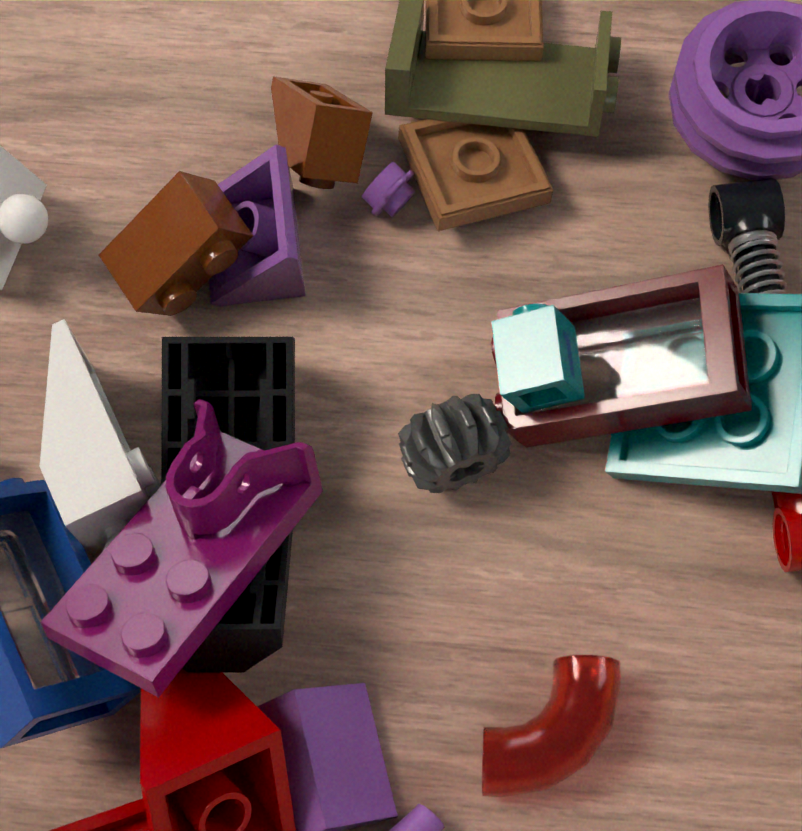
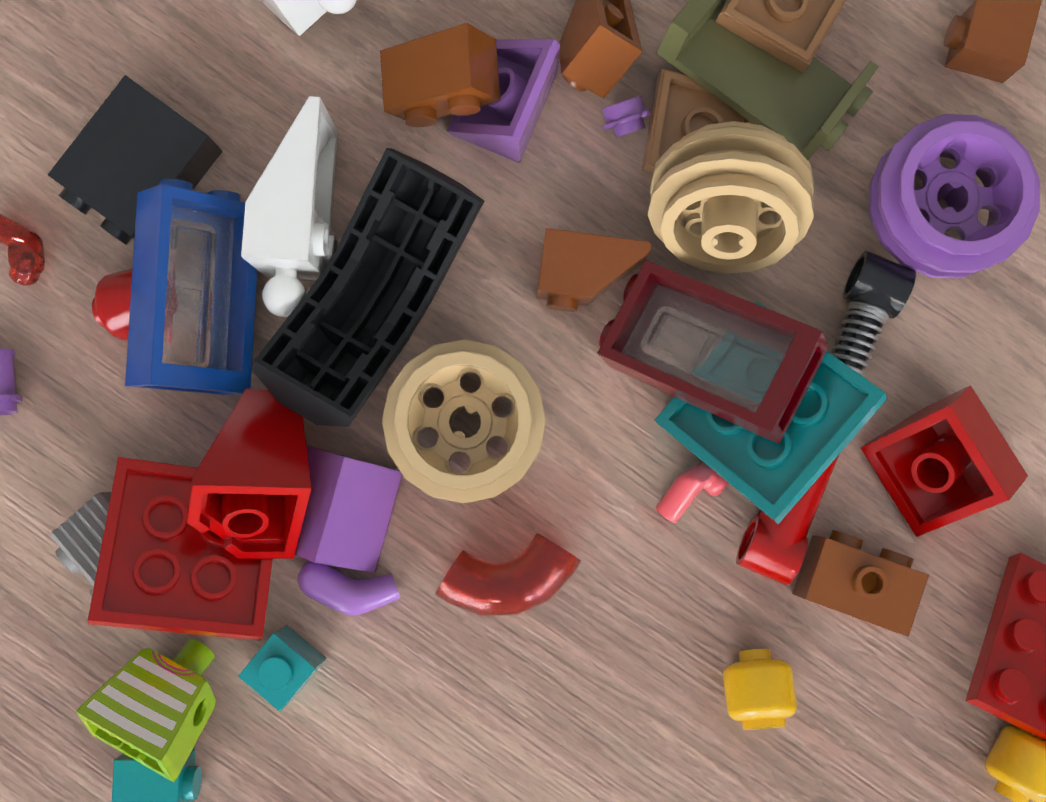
camera: 25 degrees right, 15 degrees up
(185, 555) = (315, 324): magenta plate -> none
(415, 509) = (443, 369): none -> tan wheel
(435, 353) = (584, 266): none -> dark orange slope
(454, 443) = (557, 342): dark grey gear -> none
(537, 358) = (648, 317): brick -> none
(571, 197) = (731, 197): none -> tan wheel
(684, 521) = (686, 488): none -> coral arm

